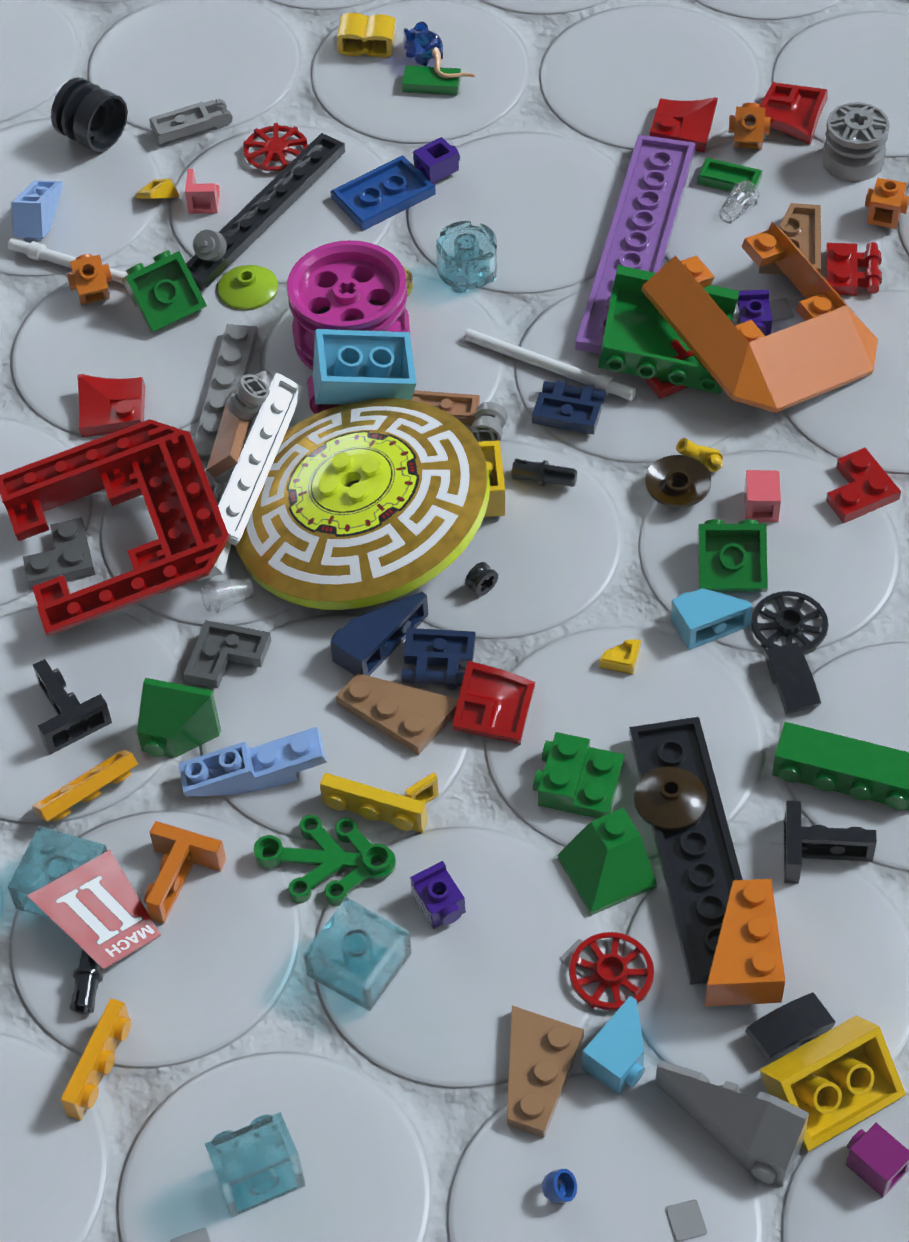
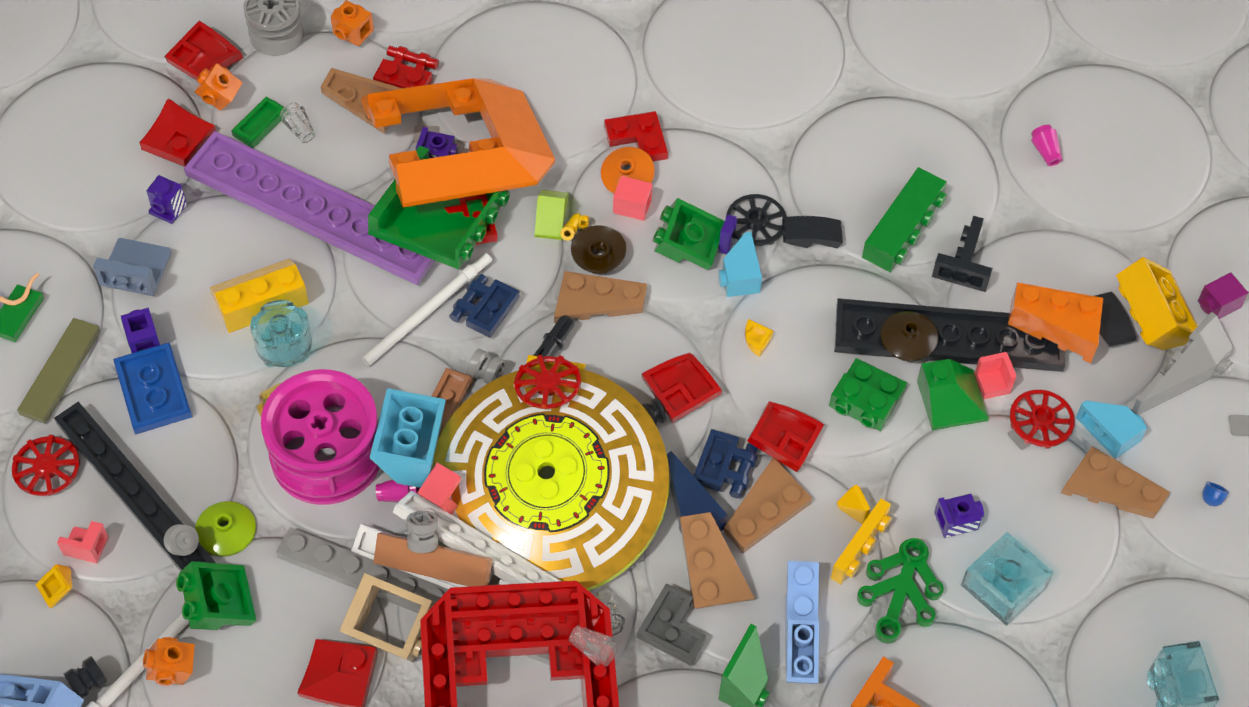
camera: 80 degrees left, 5 degrees up
(67, 234) = (83, 679): none -> black wheel
(155, 564) = (595, 645): none -> clear cone
(177, 394) = (362, 605): none -> tan window
(296, 664) = (710, 564): none -> medium nougat wing
(310, 405) = (439, 488): none -> coral panel
(380, 125) = (58, 370): none -> olive tile
(454, 450) = (547, 382): none -> red wheel
(511, 138) = (133, 266): none -> sand blue bracket
(520, 236) = (245, 295): none -> yellow slope
(526, 595) = (681, 385): none -> red plate
(596, 133) = (166, 199): none -> dark purple brick
(620, 499) = (596, 295): none -> medium nougat wing
(650, 904) = (995, 375): none -> coral panel
(718, 429) = (550, 214): none -> lime slope
(752, 590) = (726, 234): none -> dark purple tile
(805, 486) = (640, 162): none -> orange dish

